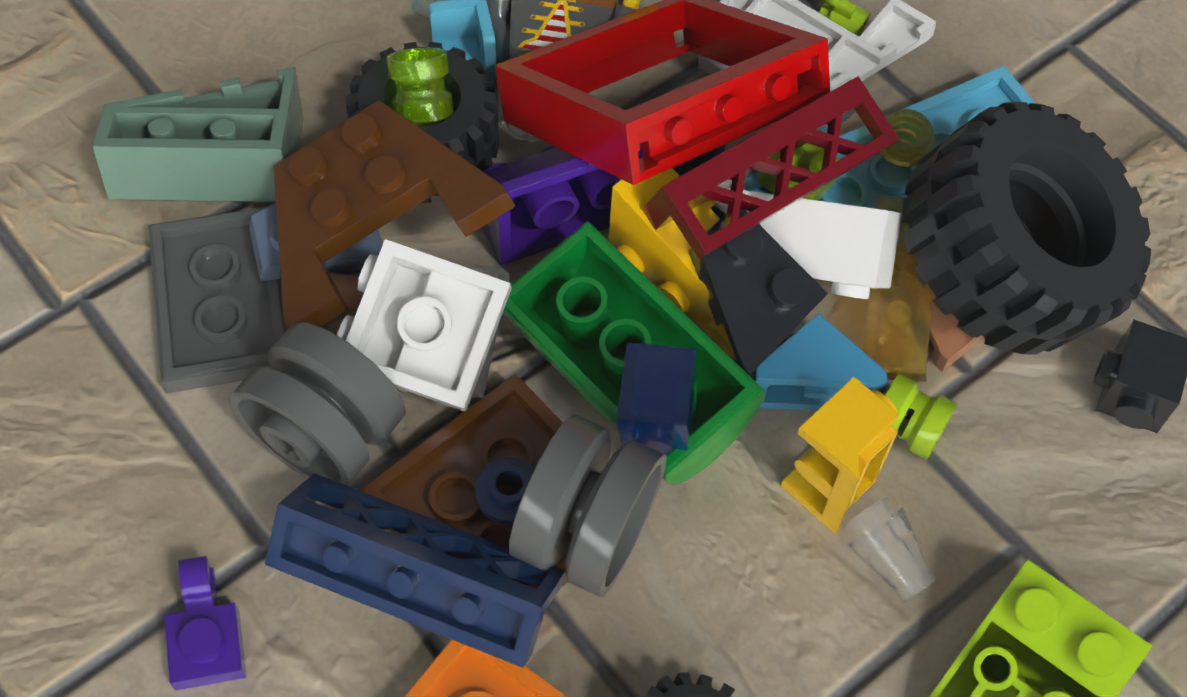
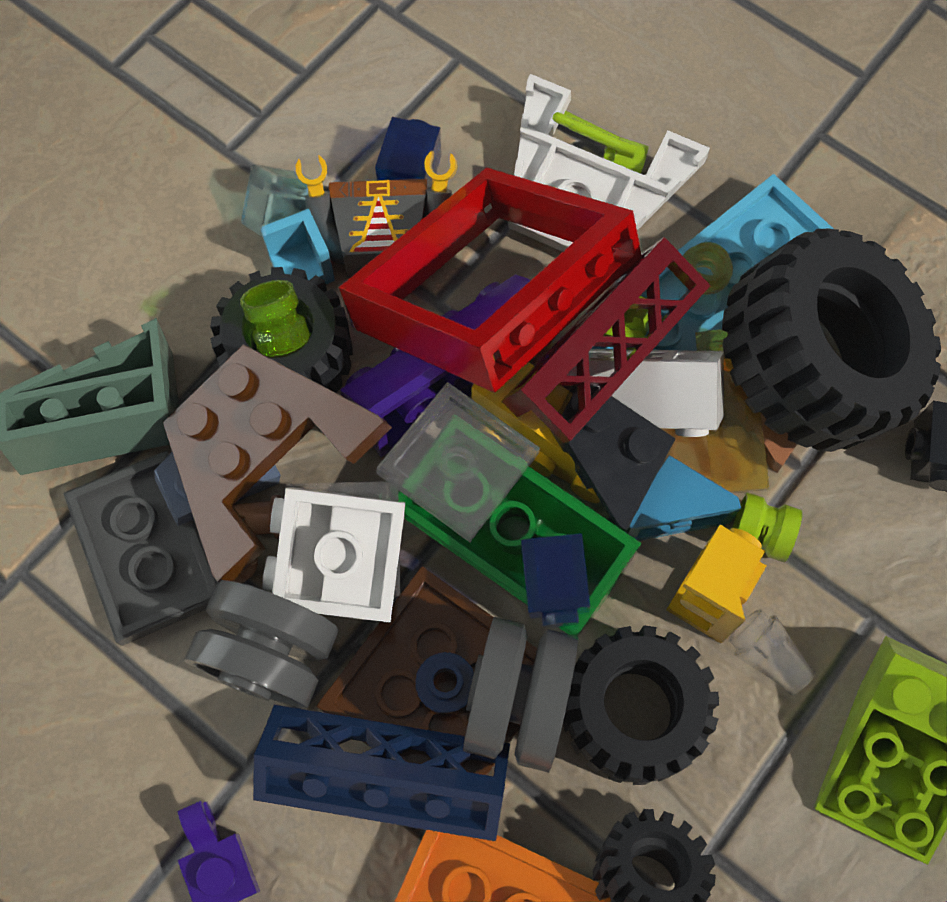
camera: 10 degrees left, 10 degrees up
(579, 261) = (458, 461): none -> clear plate
(734, 516) = (678, 677): none -> black tyre

